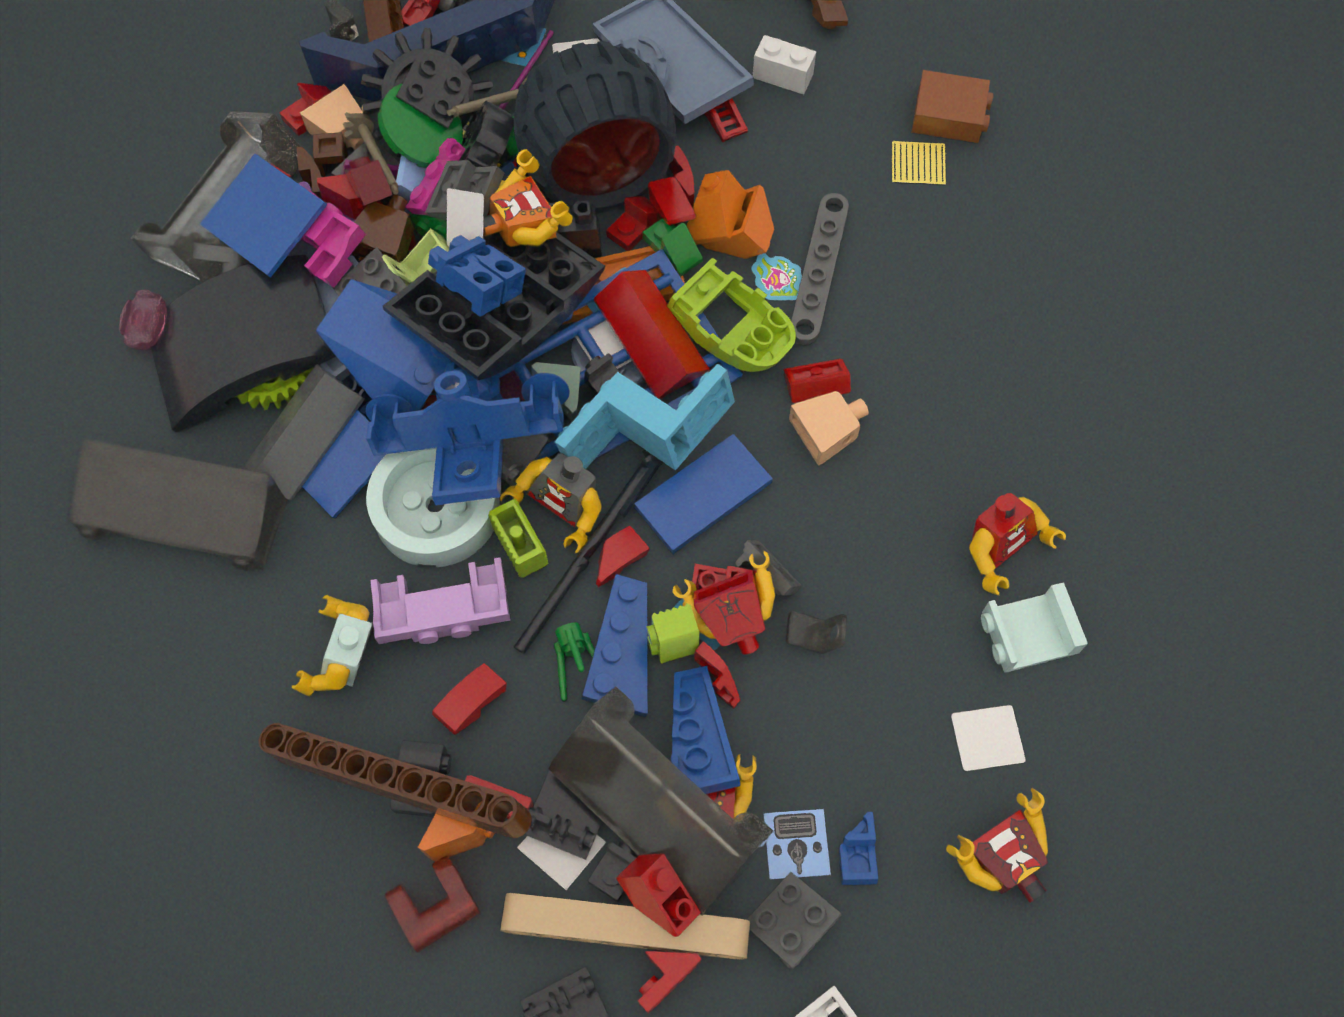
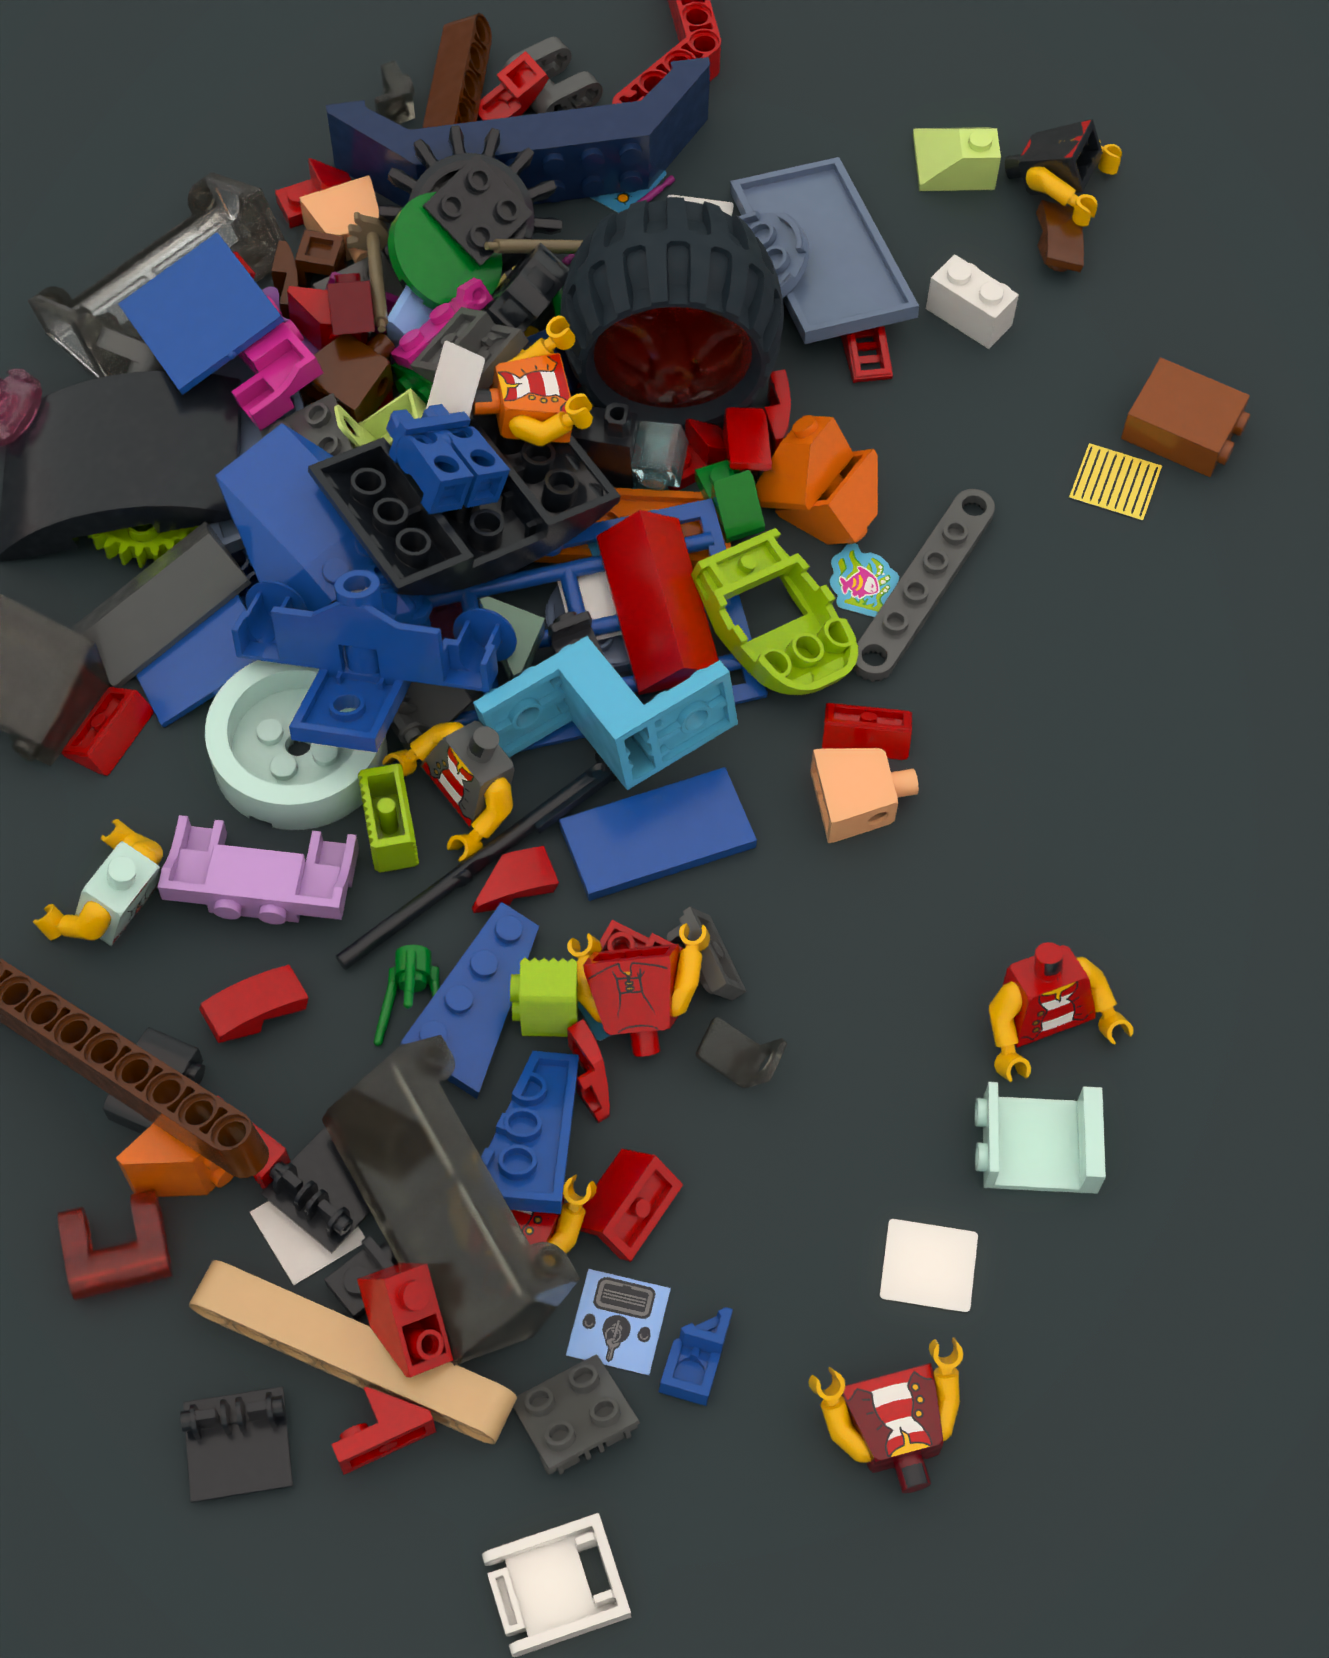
camera: 15 degrees right, 5 degrees down
(296, 531) = (109, 730): none -> red slope
(615, 228) = (659, 454): none -> clear light blue brick
(778, 757) = (629, 1201): none -> red panel

